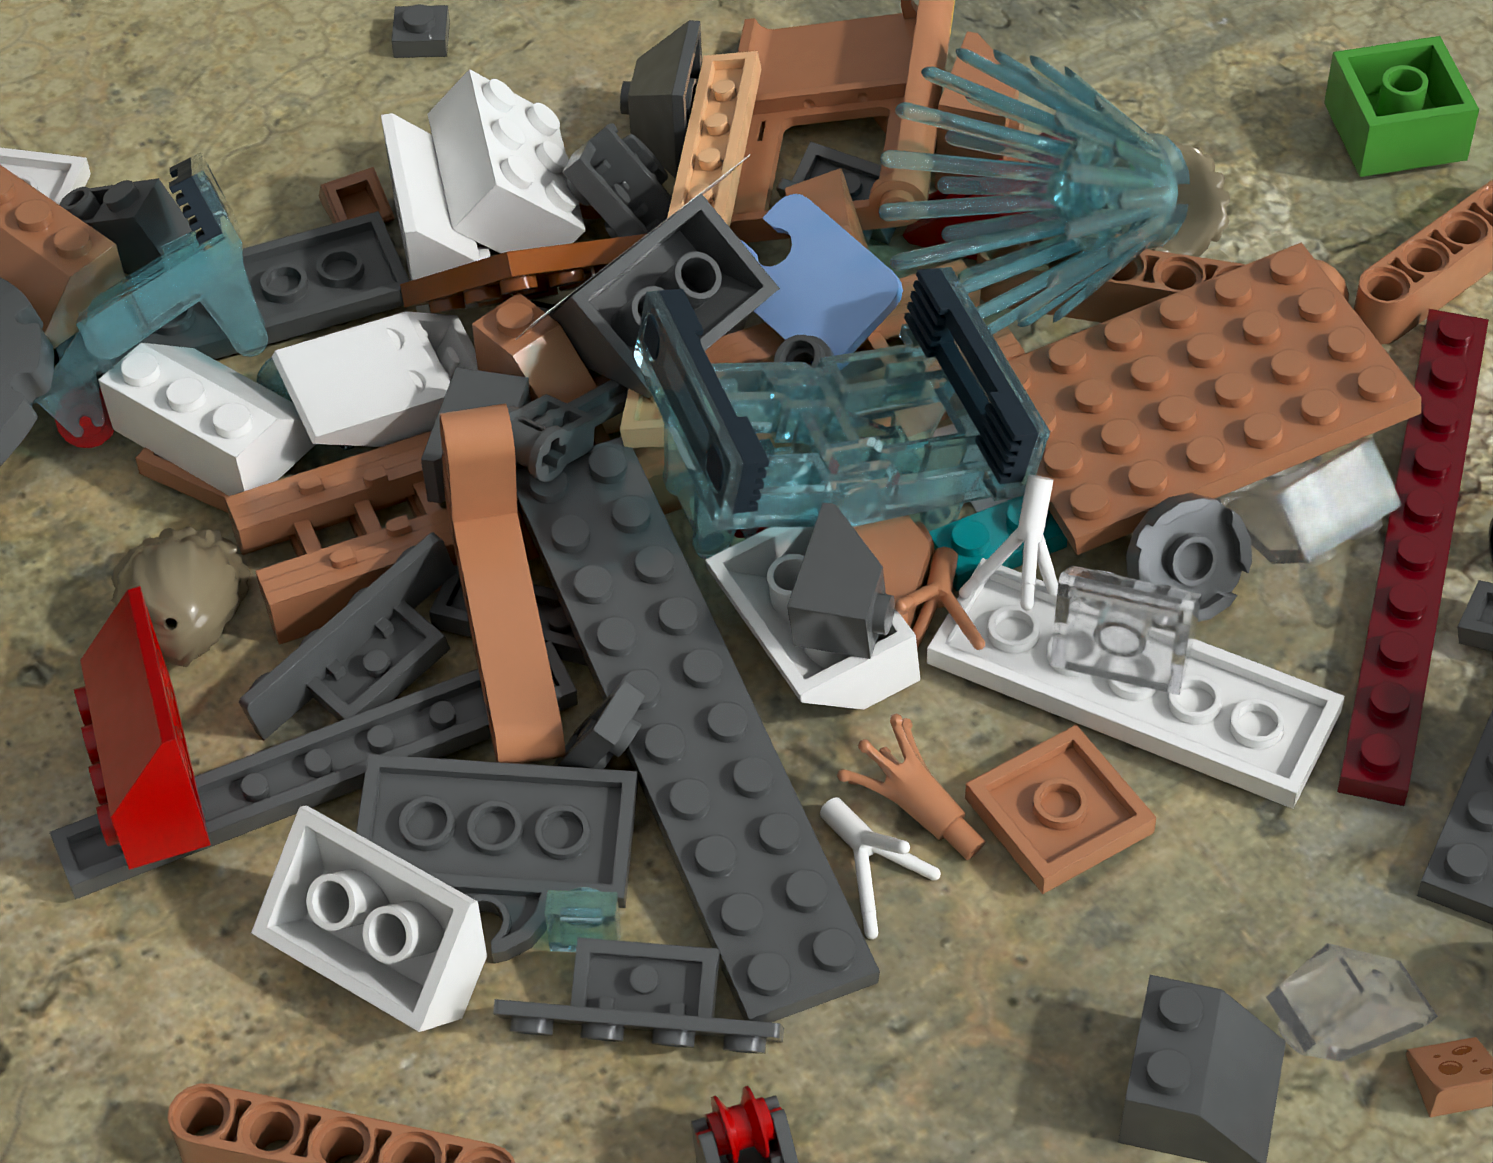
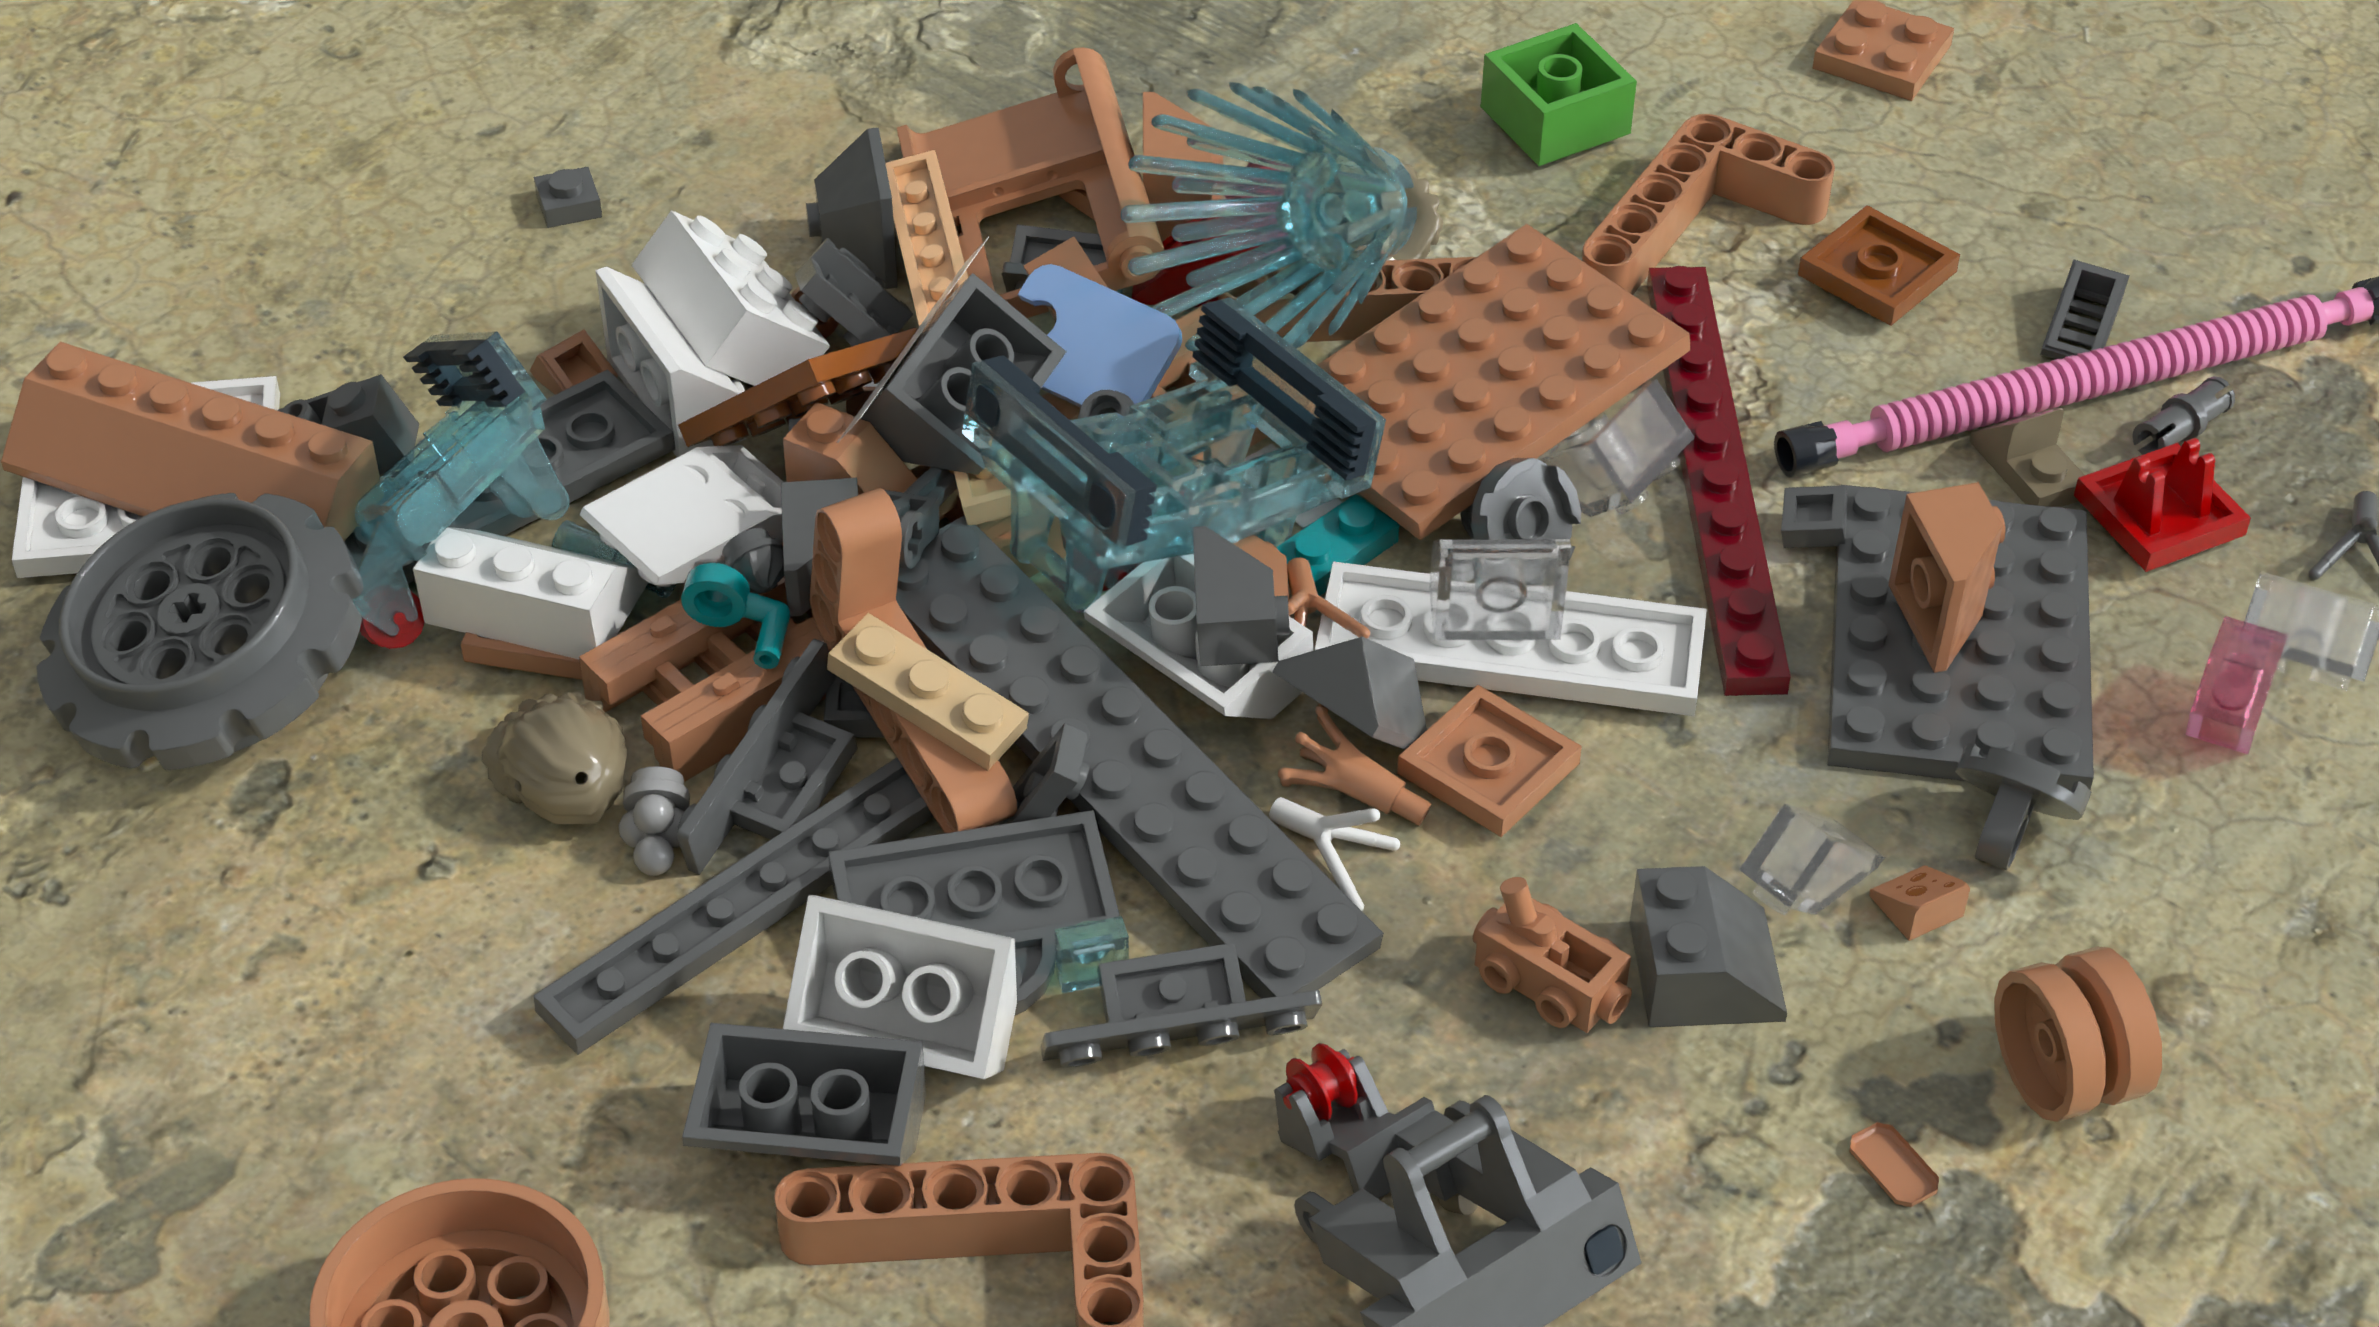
camera: 20 degrees left, 5 degrees down
(137, 741) = (601, 879): red slope -> none
(239, 661) = (654, 809): none -> light grey piece
(243, 1011) = (808, 1095): none -> dark grey slope
(365, 470) = (722, 596): none -> teal plate
(405, 438) = (756, 558): none -> dark grey plate
(510, 615) = (928, 691): none -> tan plate
(949, 710) = (1364, 686): none -> dark grey slope
(1031, 1046) = (1551, 961): none -> nougat brick
(1035, 550) = (1384, 517): white plant -> none

